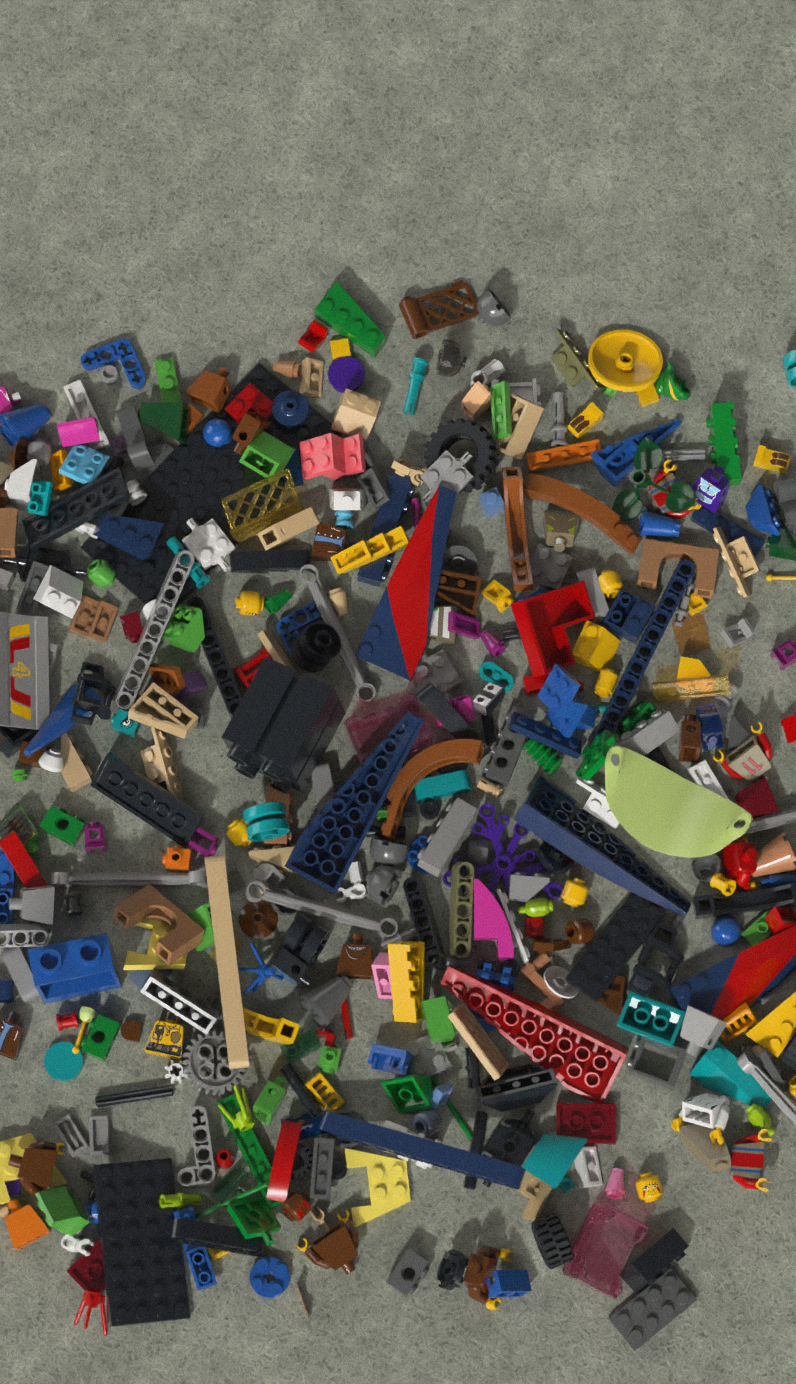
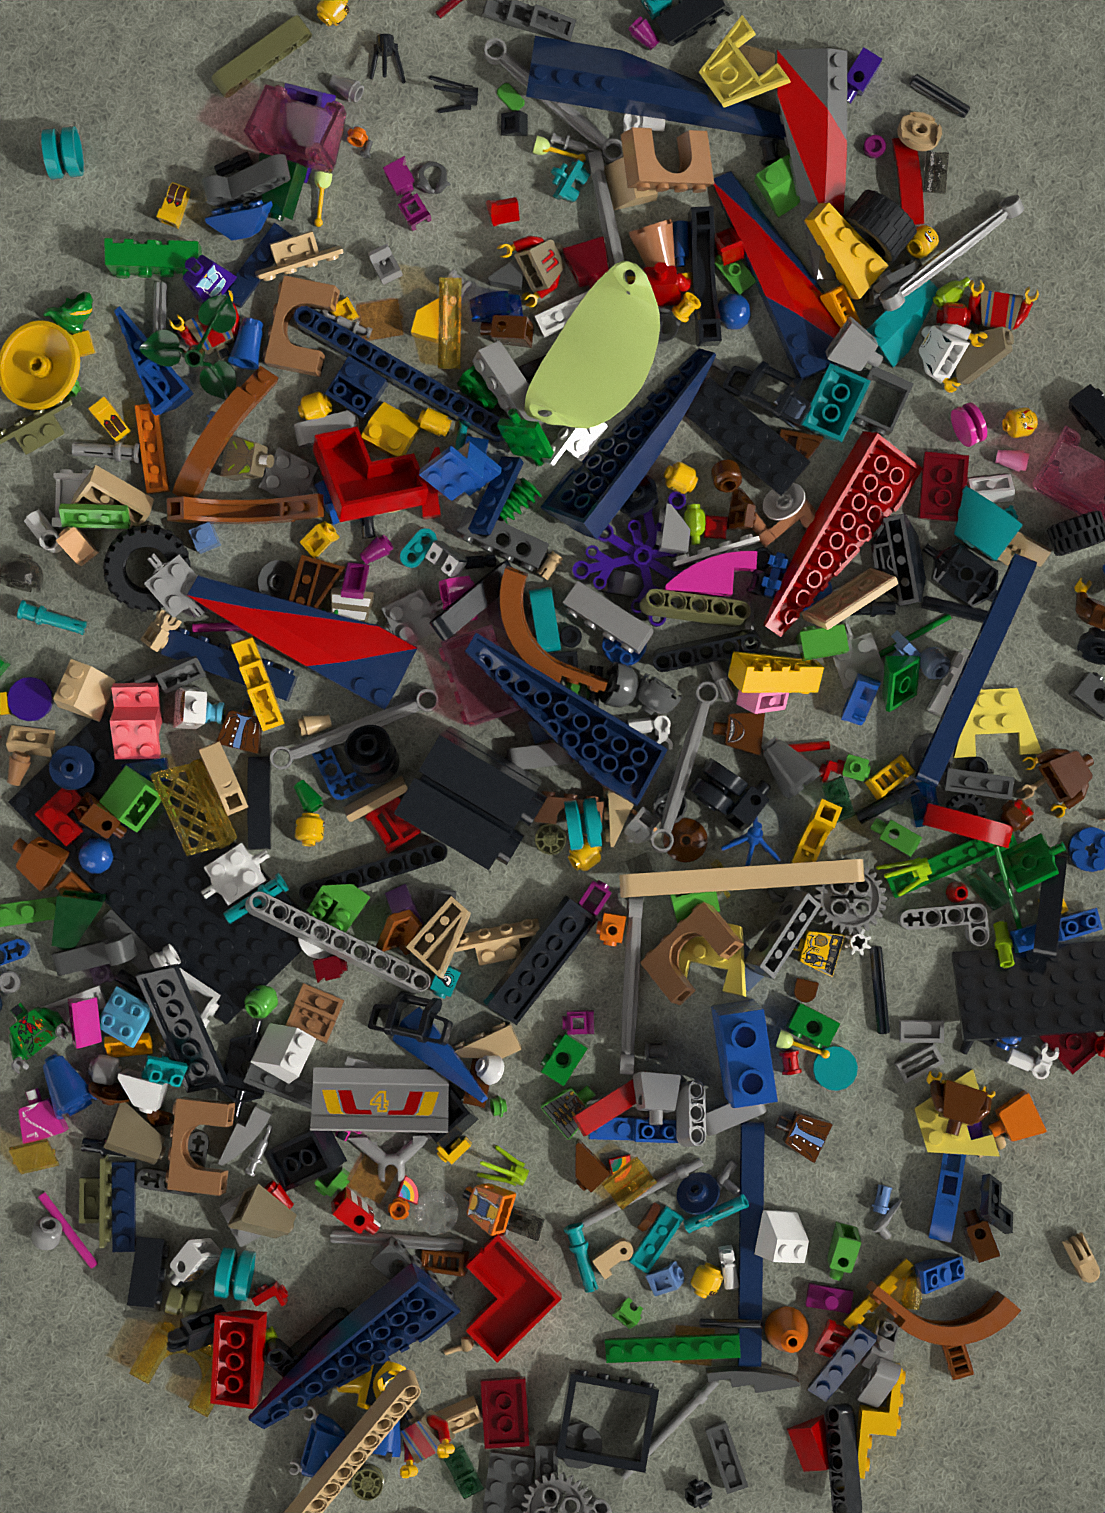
camera: 90 degrees left, 15 degrees up
(62, 1210) = (1010, 1076): bright green slope -> none
(67, 392) = (33, 1032): none -> green torso
(129, 534) = (220, 965): dark blue wedge -> none
(251, 798) = (550, 839): none -> olive wheel
(641, 1140) = (969, 424): none -> dark pink head
(739, 1121) = (954, 314): none -> red head

